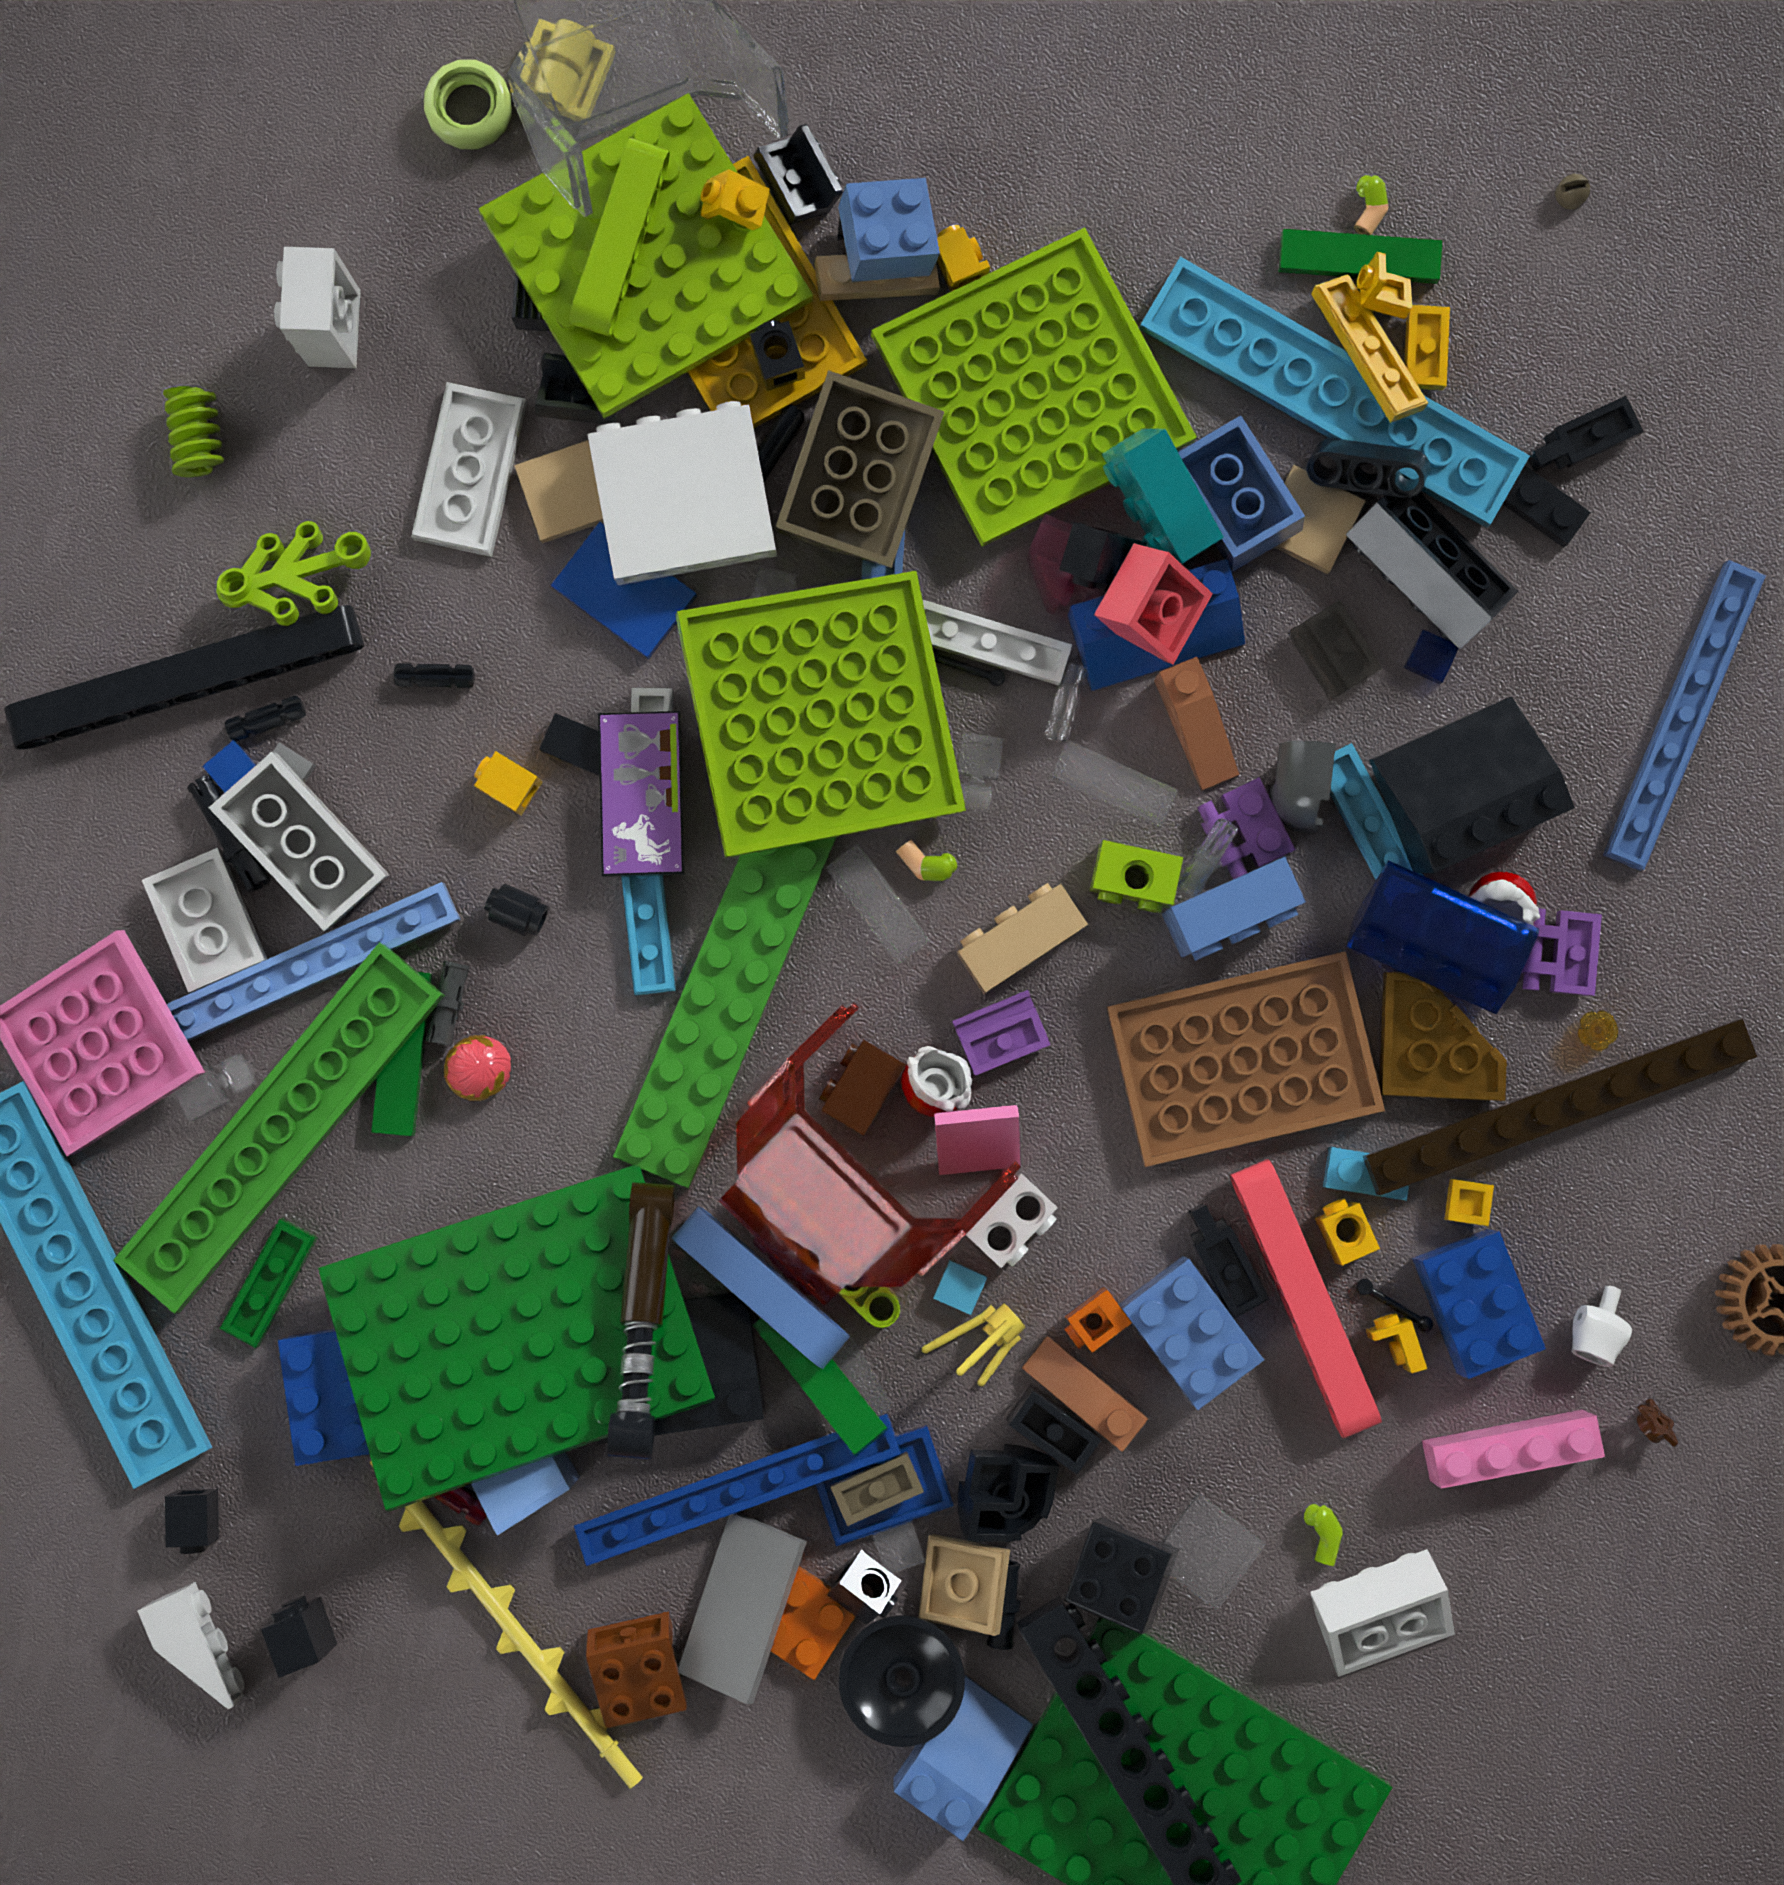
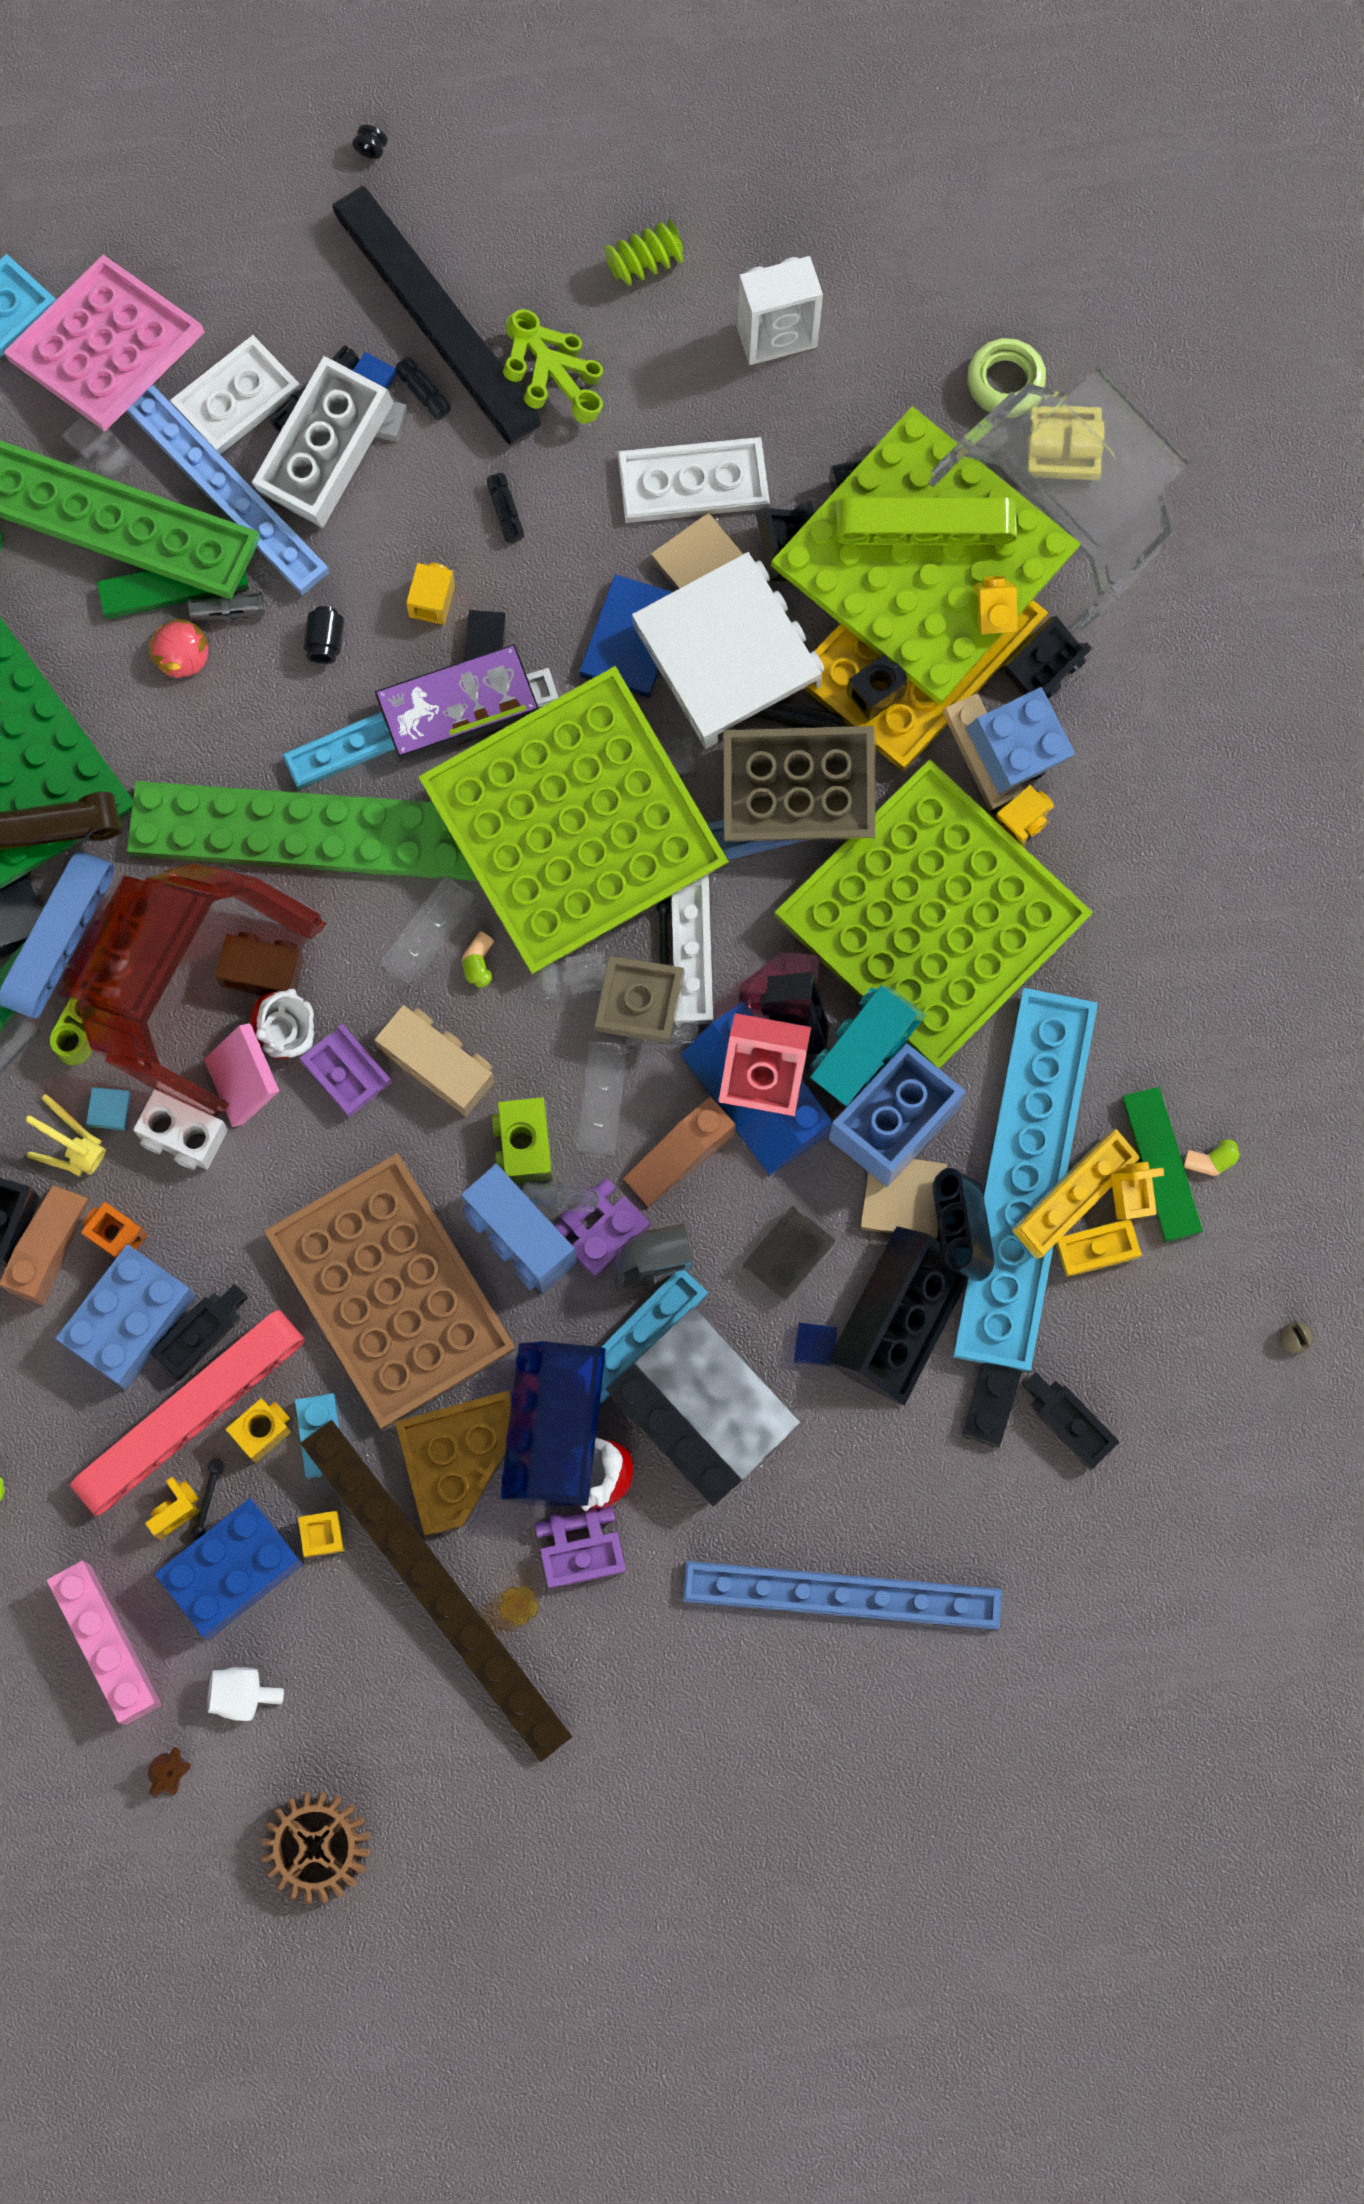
camera: 75 degrees right, 10 degrees down
(1031, 709) = (639, 999): none -> dark tan plate

